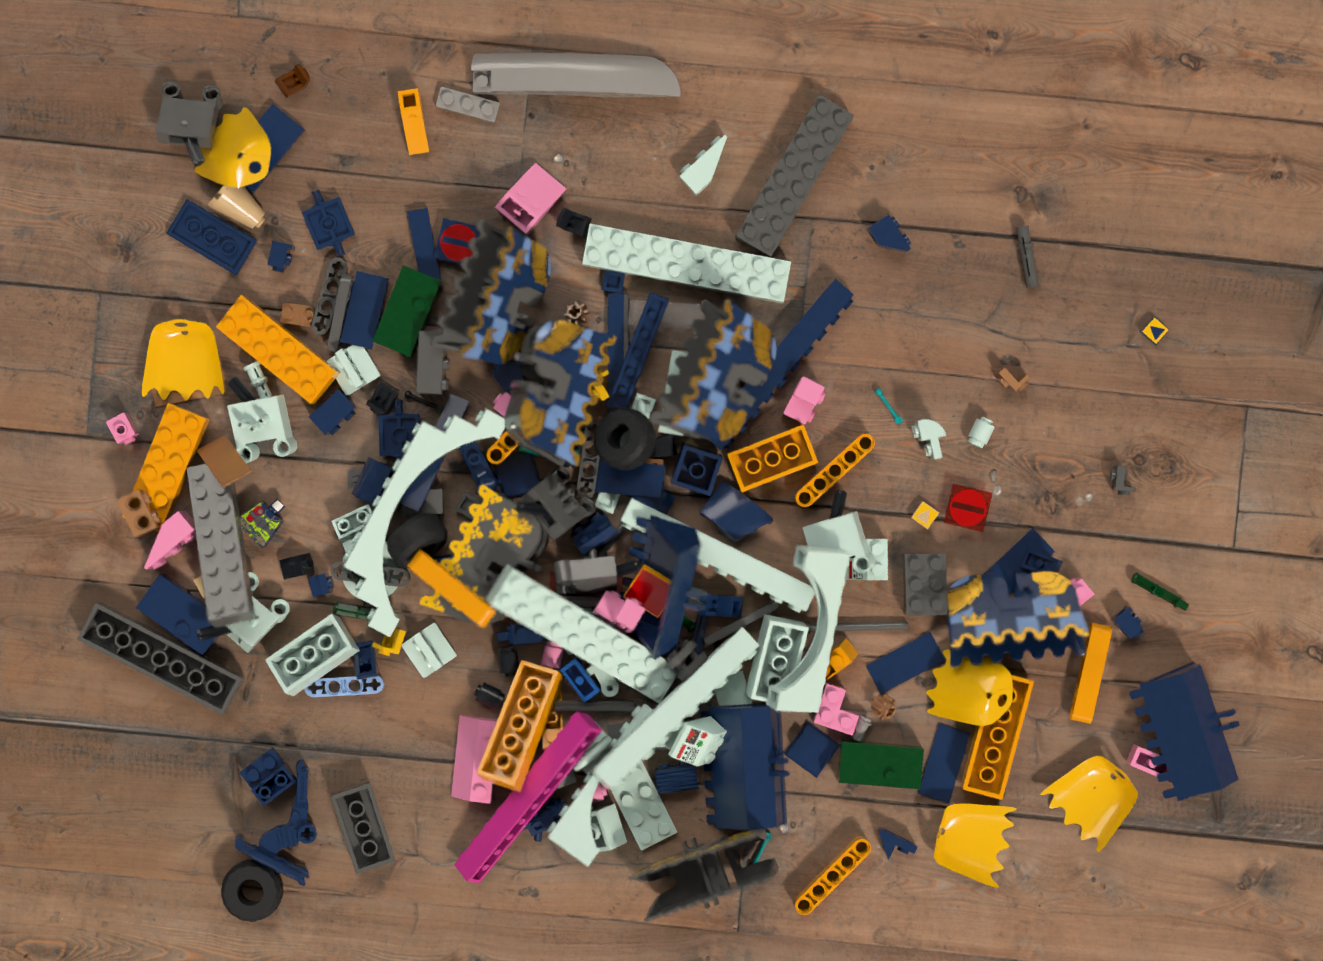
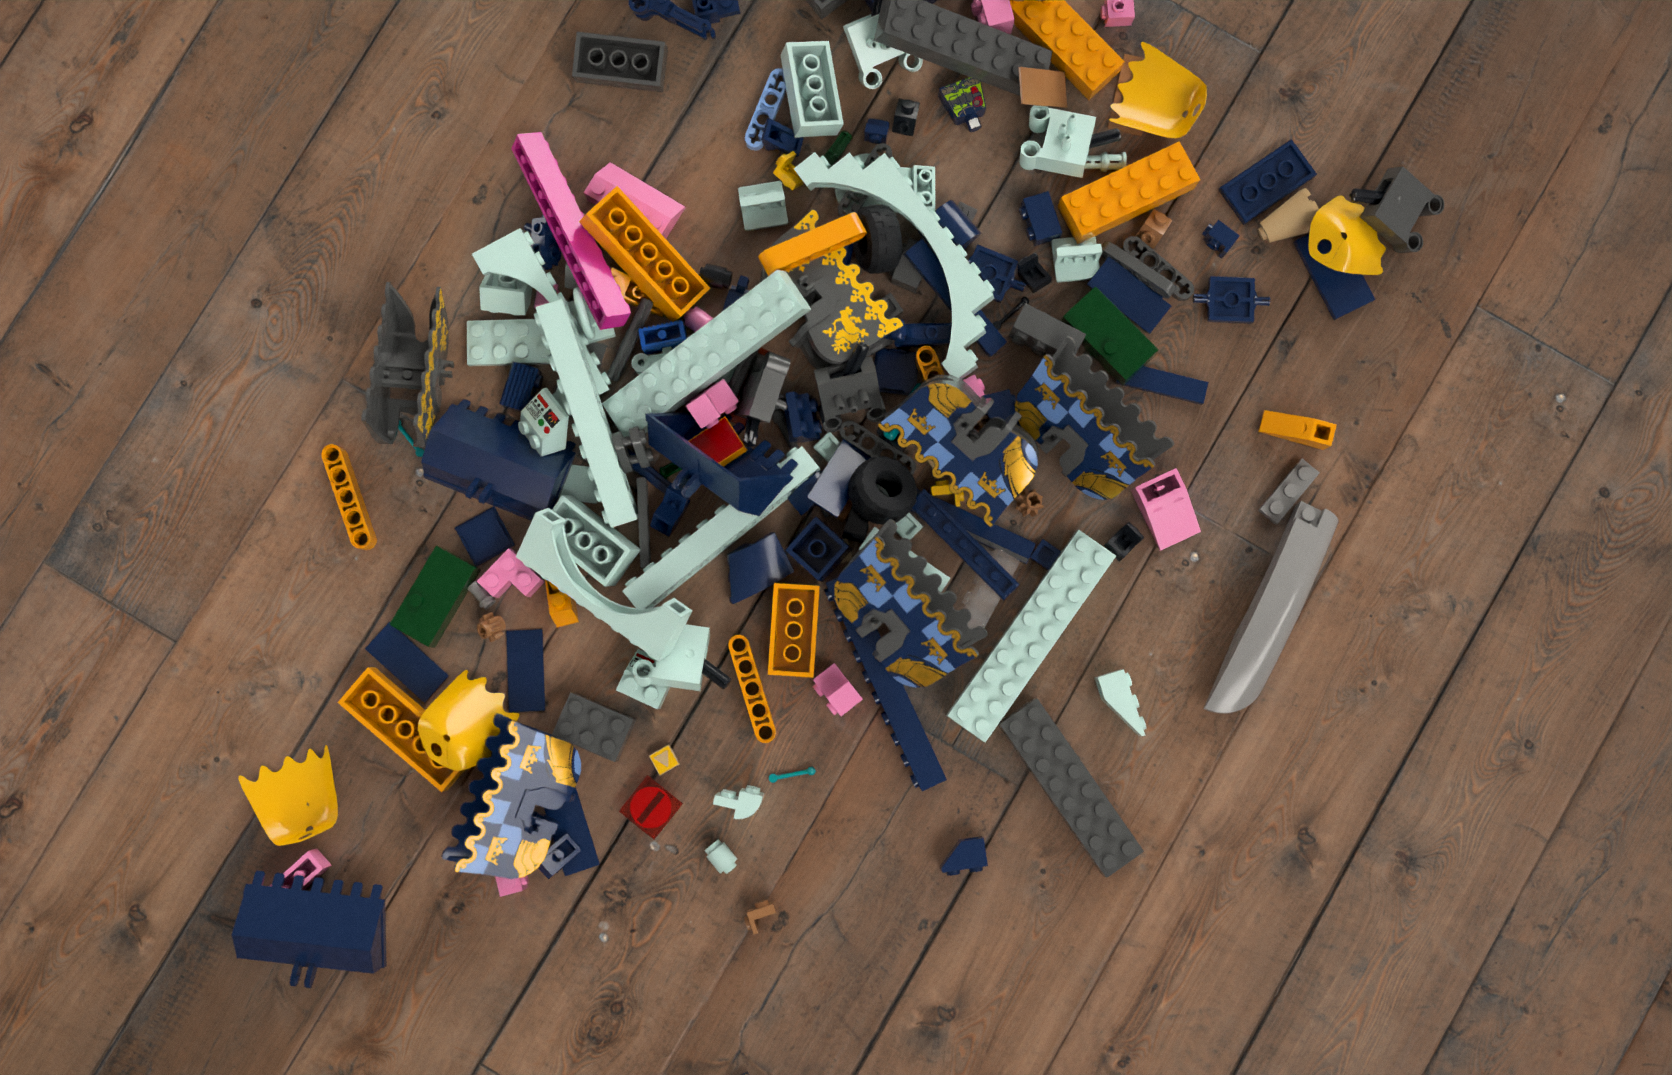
camera: 115 degrees right, 5 degrees down
(293, 81) = (1389, 329): reddish brown bracket -> none
(454, 240) = (1161, 411): piece -> none
(489, 695) = (690, 242): black brick -> none
(871, 626) = (580, 648): dark grey bar -> none
(890, 840) = (354, 574): dark blue slope -> none
(981, 837) = (311, 664): yellow piece -> none
(1025, 247) = (879, 990): dark grey pin -> none
(1090, 673) = (422, 854): light orange beam -> none
(1117, 476) = (608, 977): dark grey bracket -> none
(1128, 623) = (455, 917): dark blue brick -> none
(1159, 591) = (472, 965): dark green piece -> none

